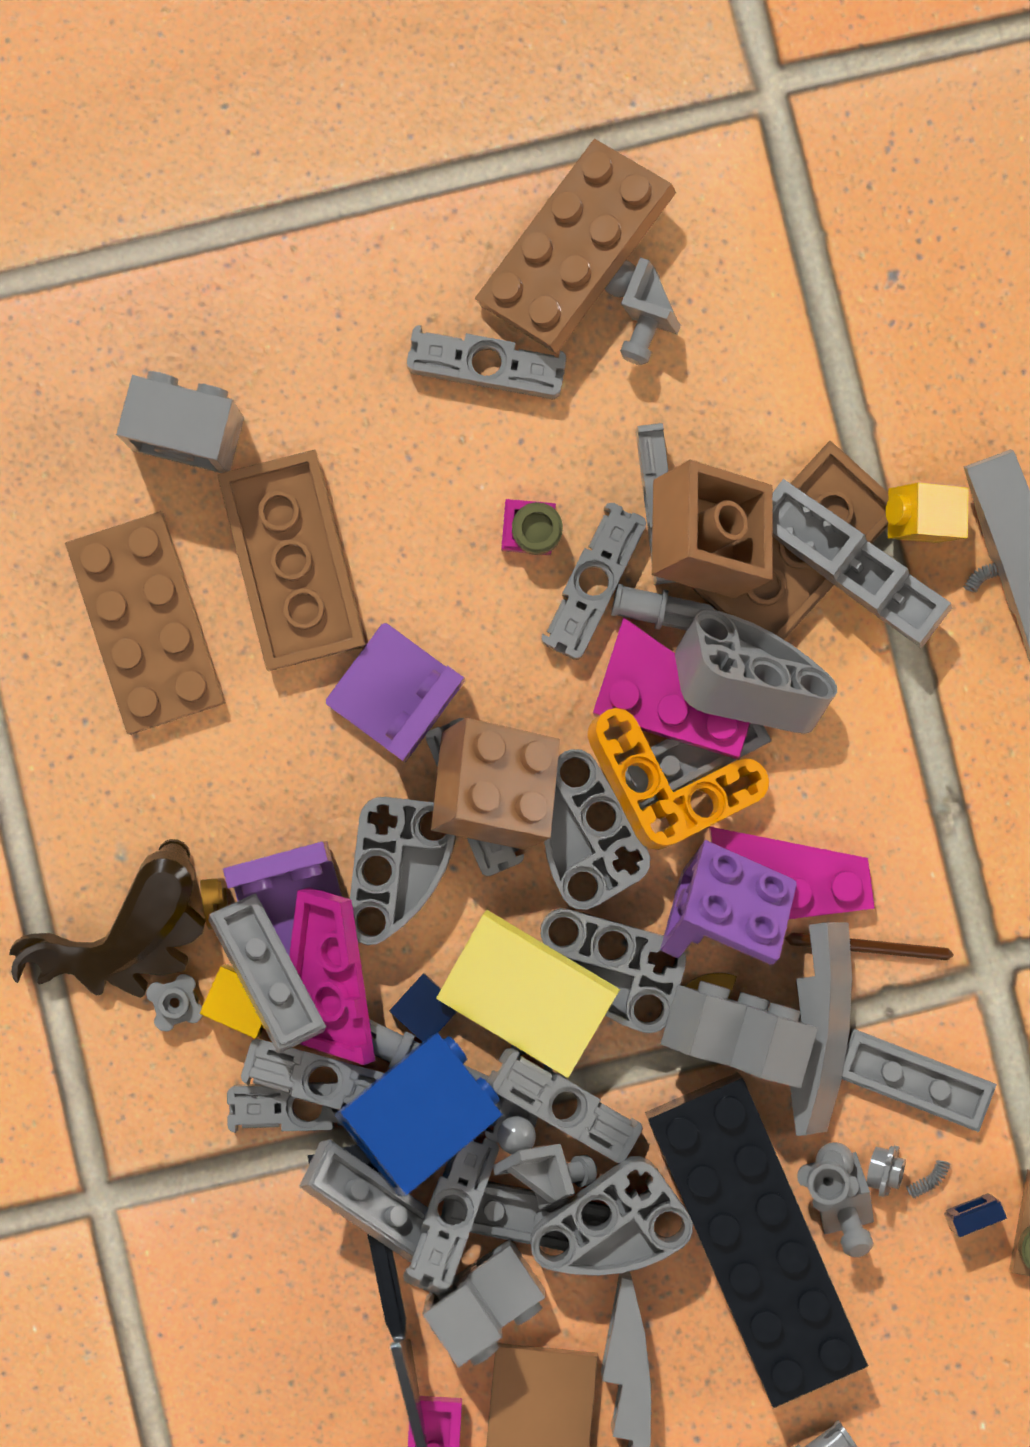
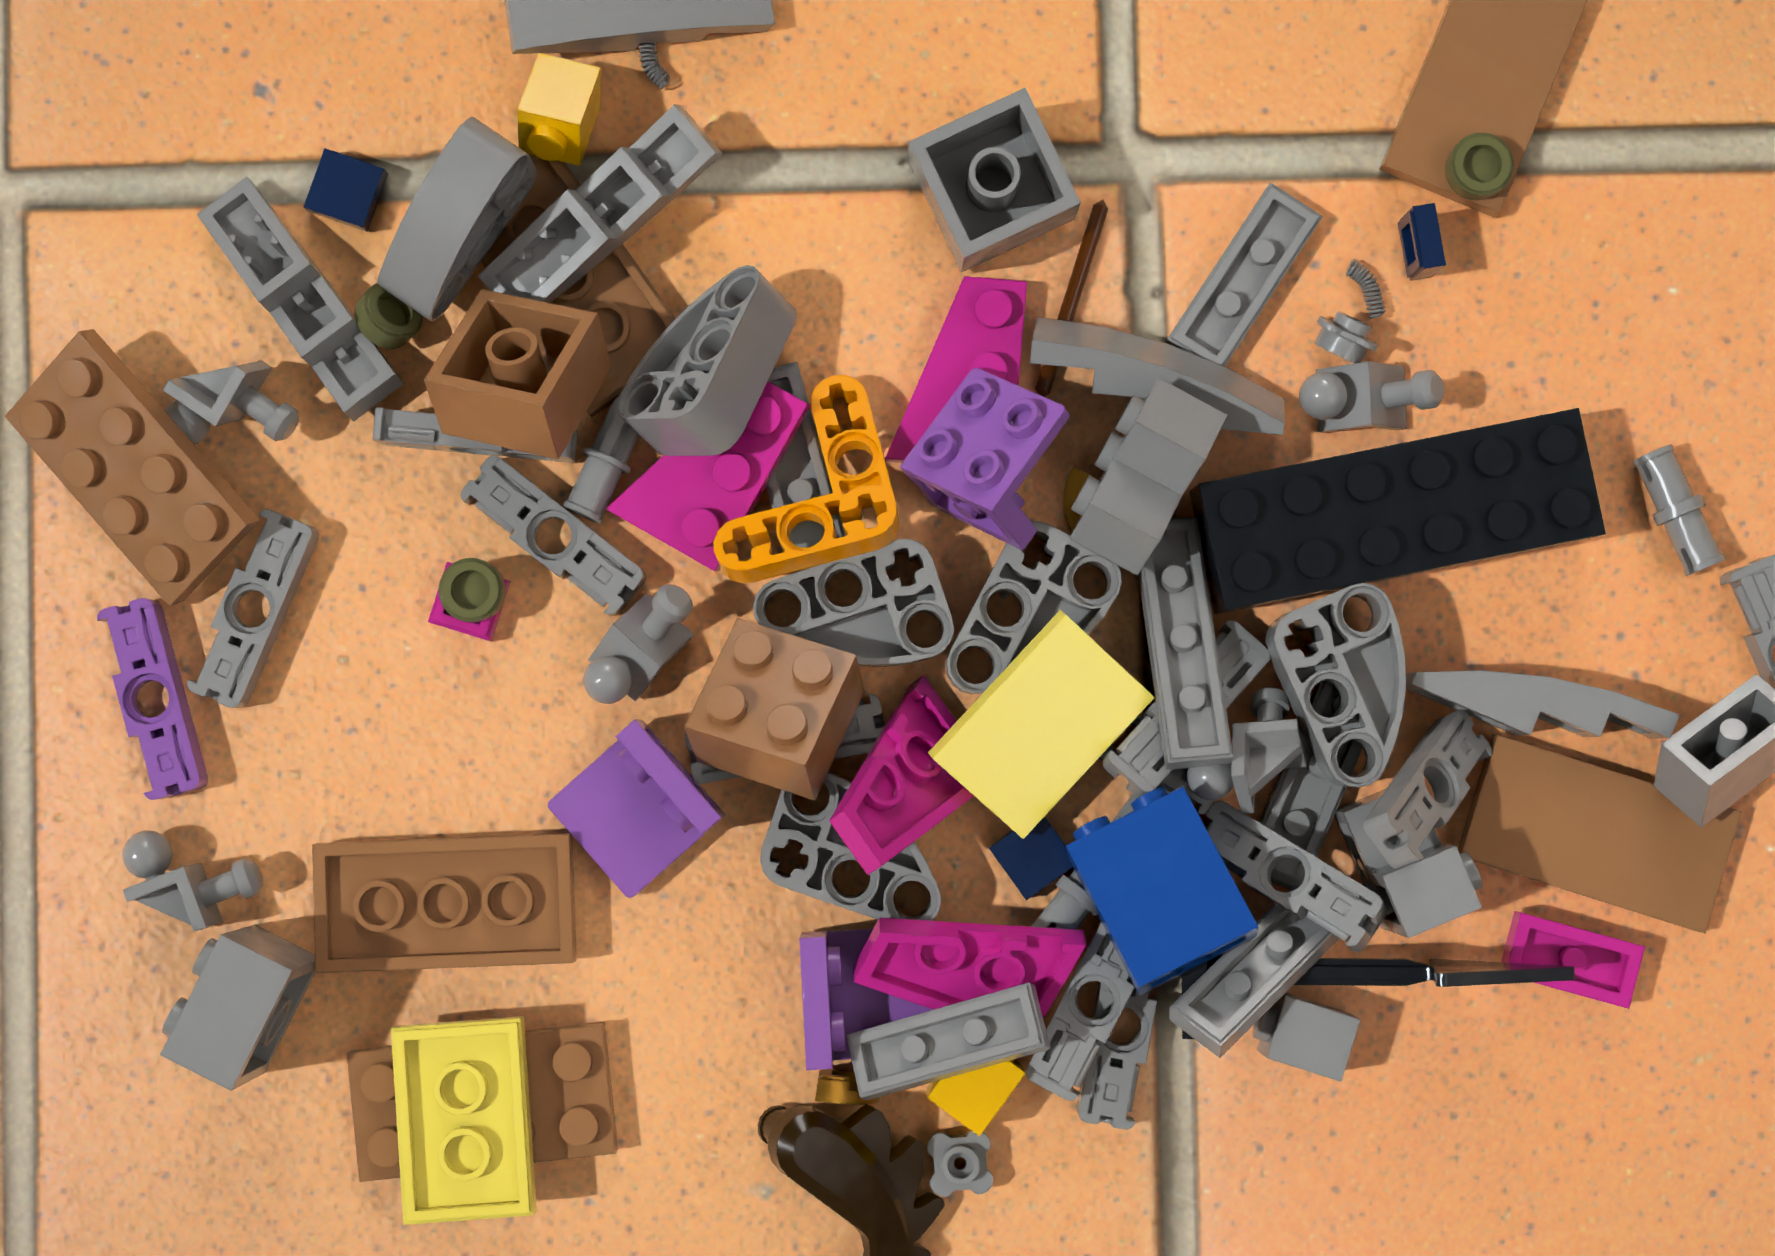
camera: 85 degrees left, 0 degrees up
(128, 613) = (463, 1120): none -> light yellow tile
(258, 359) = (186, 890): none -> light grey piece
(330, 1253) = (1307, 1035): none -> light grey brick
(372, 319) = (146, 656): none -> medium lavender piece
(456, 893) = (899, 785): none -> dark pink wing
(522, 666) = (639, 646): none -> light grey piece
(523, 1293) = (1406, 808): none -> light grey piece
(609, 1093) = (1184, 651): none -> light grey tile
(735, 344) = (299, 298): none -> light grey slope
(737, 415) = (386, 318): none -> olive tile
(822, 453) = (456, 217): none -> light grey beam
(828, 1195) = (1363, 411): light grey plate -> none
(829, 360) = (345, 190): none -> dark blue tile
(947, 864) = (993, 179): none -> light grey brick

